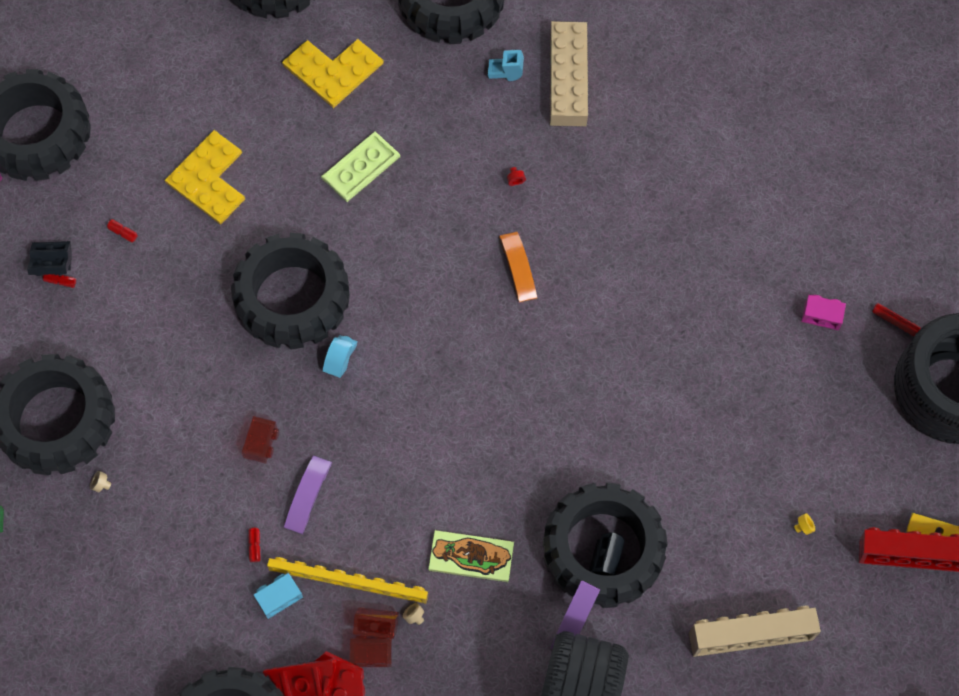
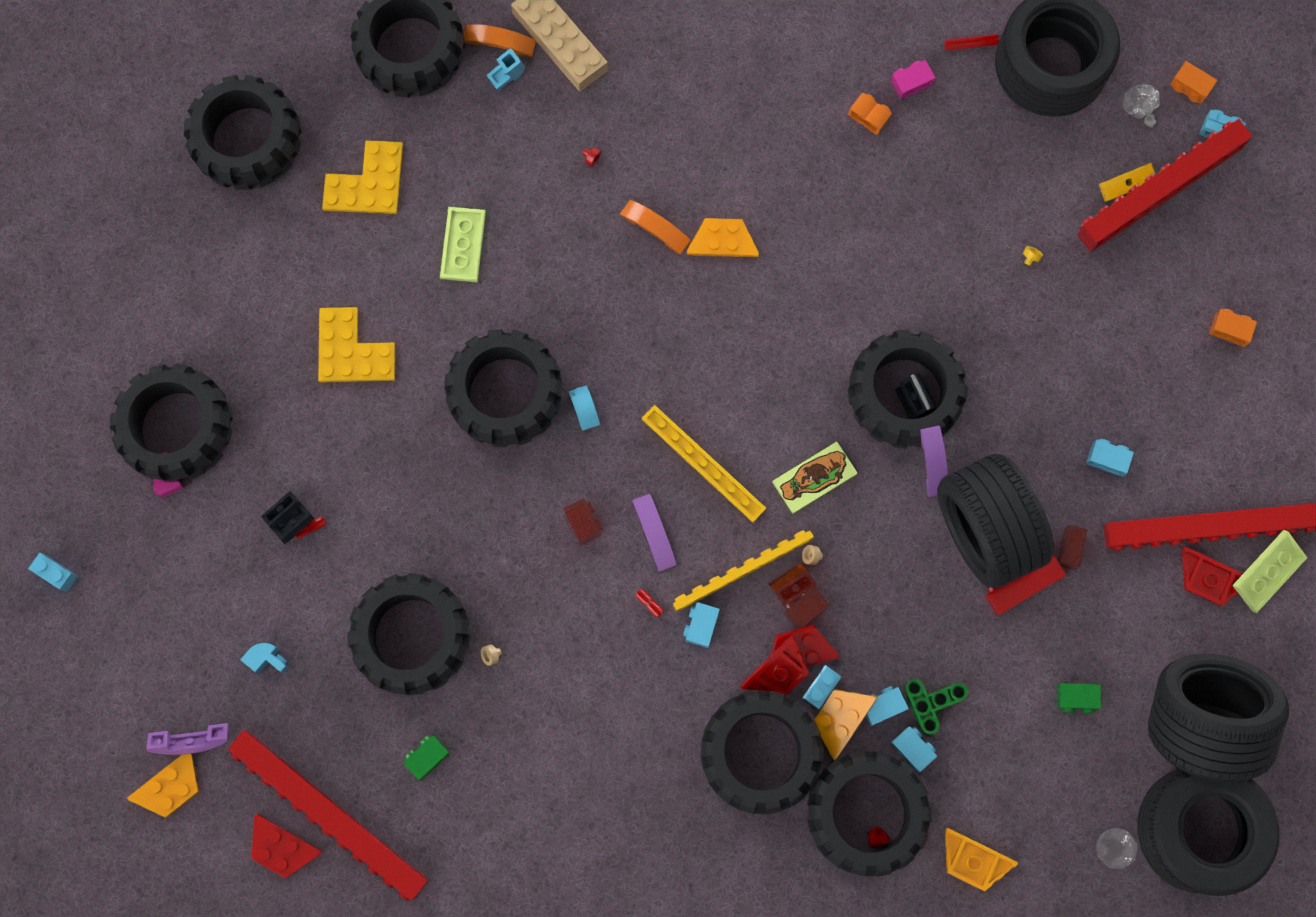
camera: 35 degrees left, 10 degrees up
(125, 232) = (317, 449): red piece -> none
(393, 474) = (703, 463): none -> yellow plate
(523, 41) = (499, 38): none -> orange slope
(562, 315) = (723, 238): none -> light orange wing
(754, 631) = (1062, 364): tan brick -> none
(765, 311) = (870, 113): none -> orange brick

